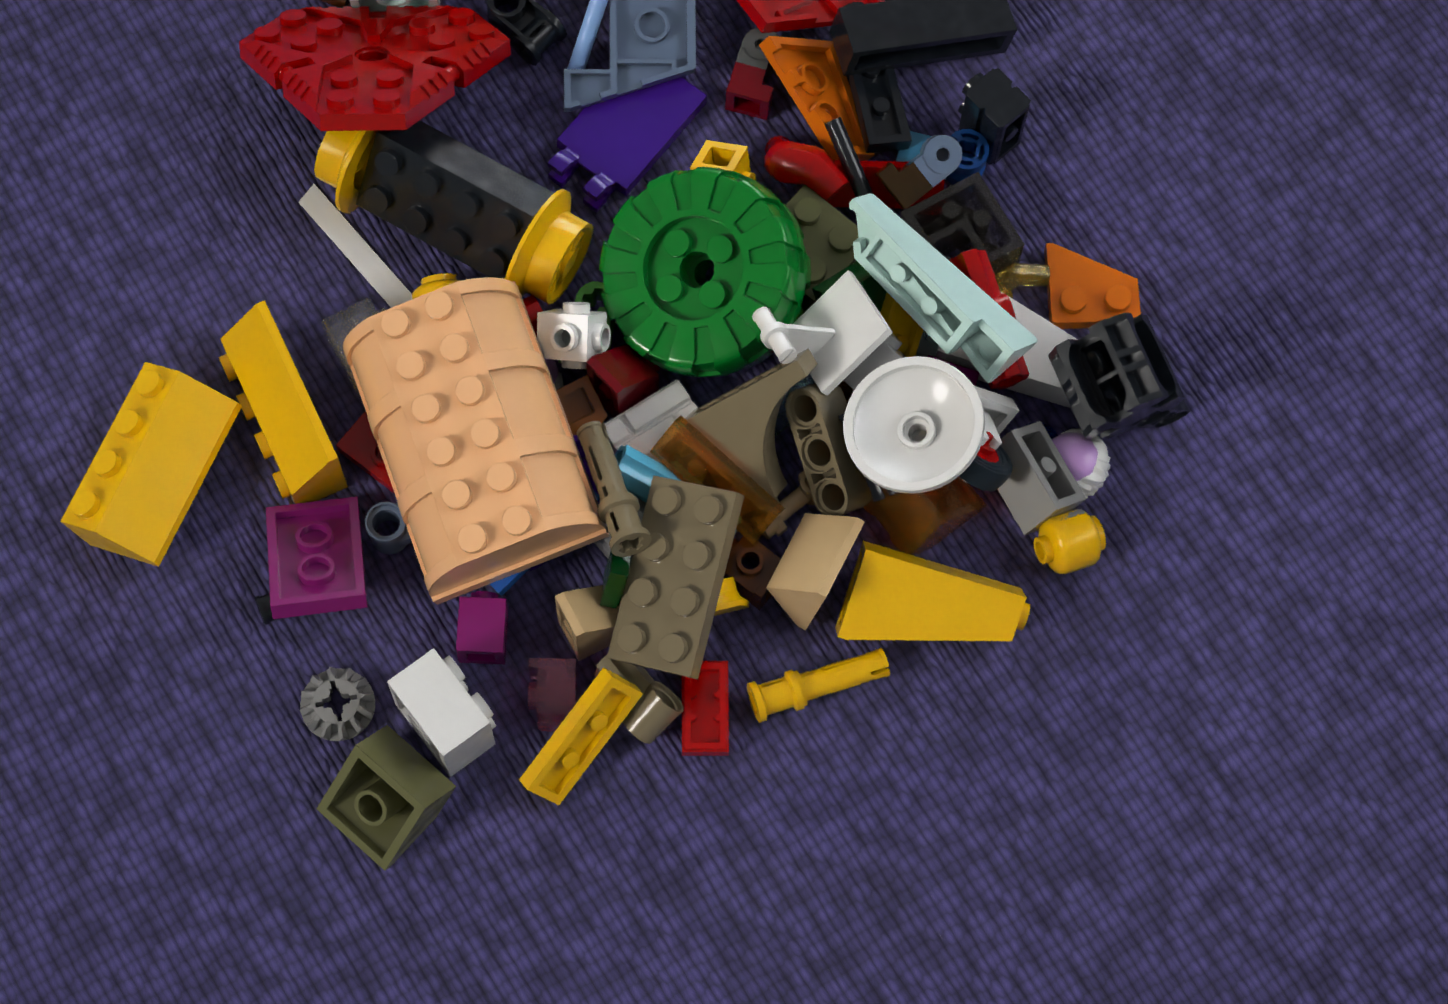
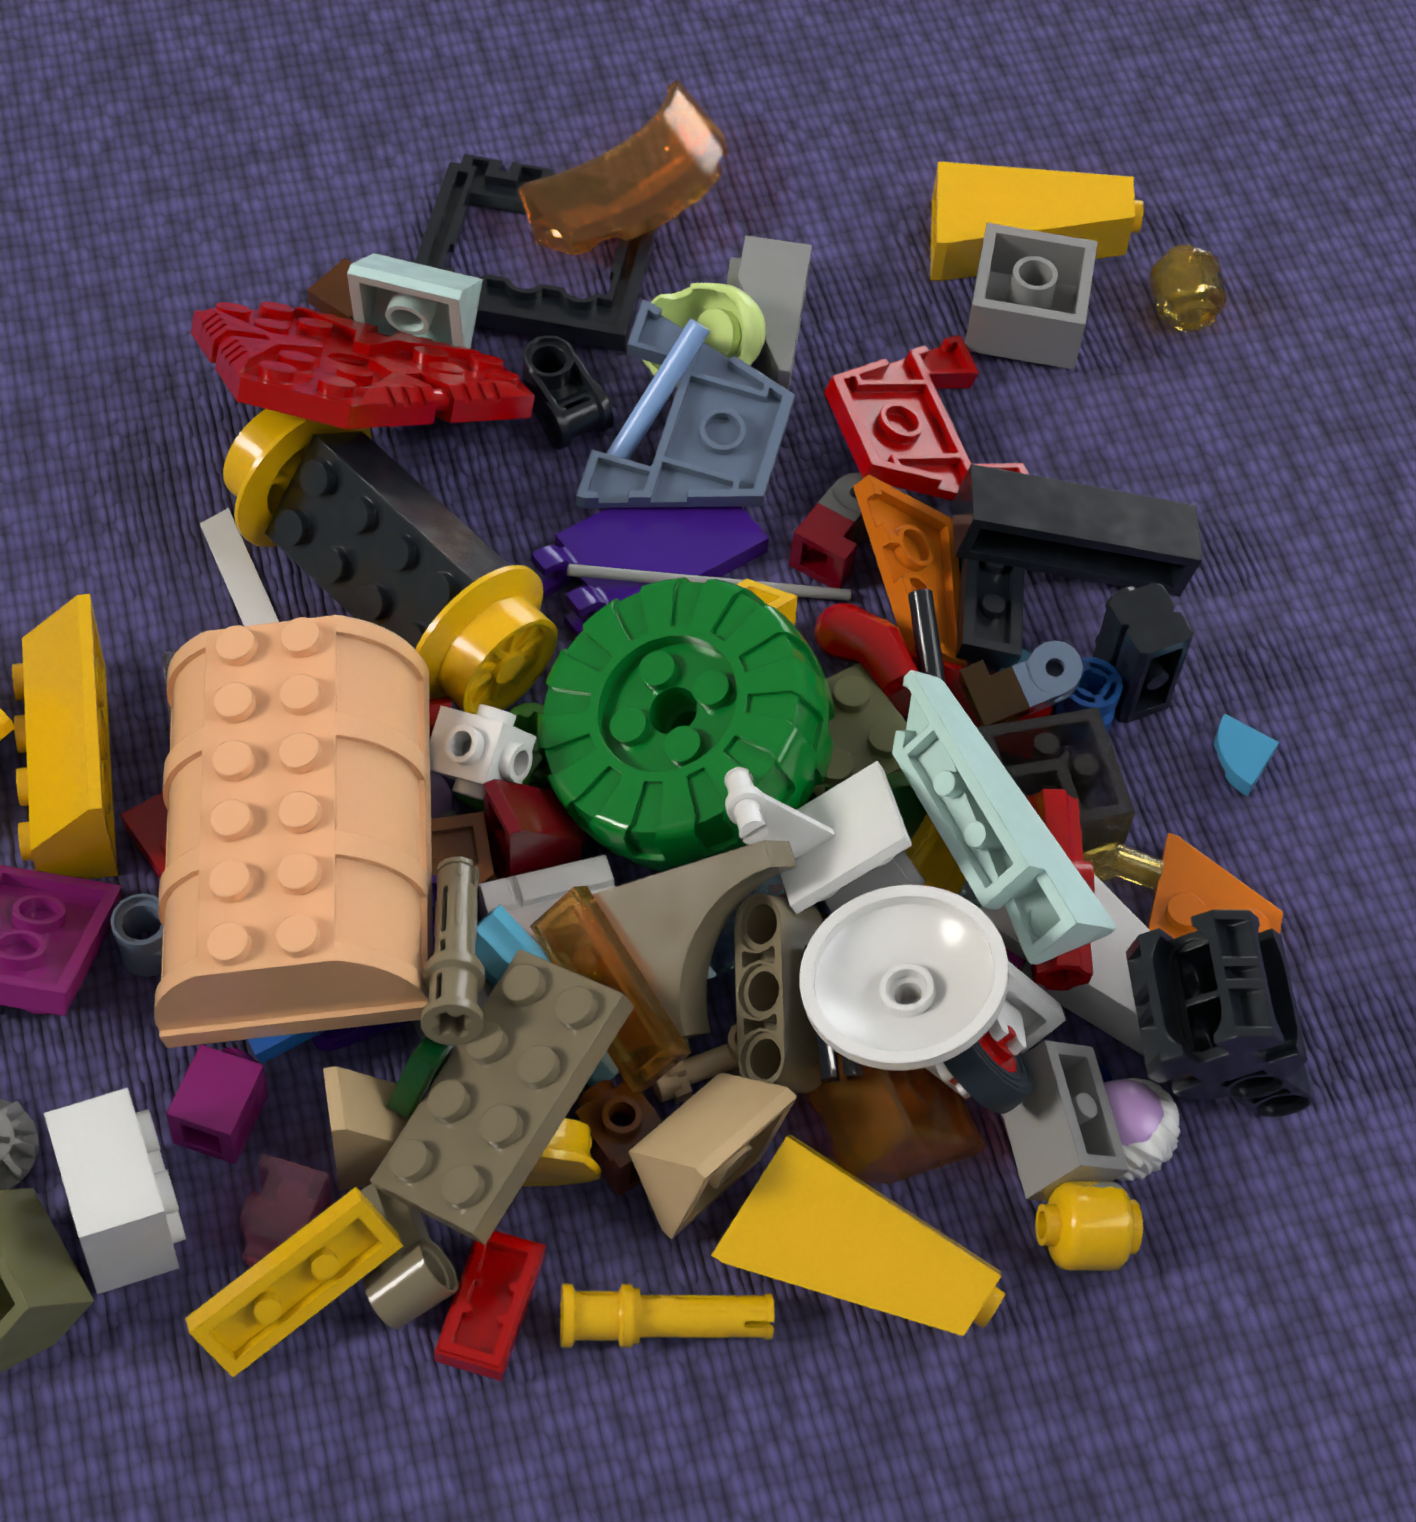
camera: 15 degrees right, 15 degrees down
(680, 144) = (652, 577): none -> light grey piece
(1080, 165) = (1243, 753): none -> dark azure tile

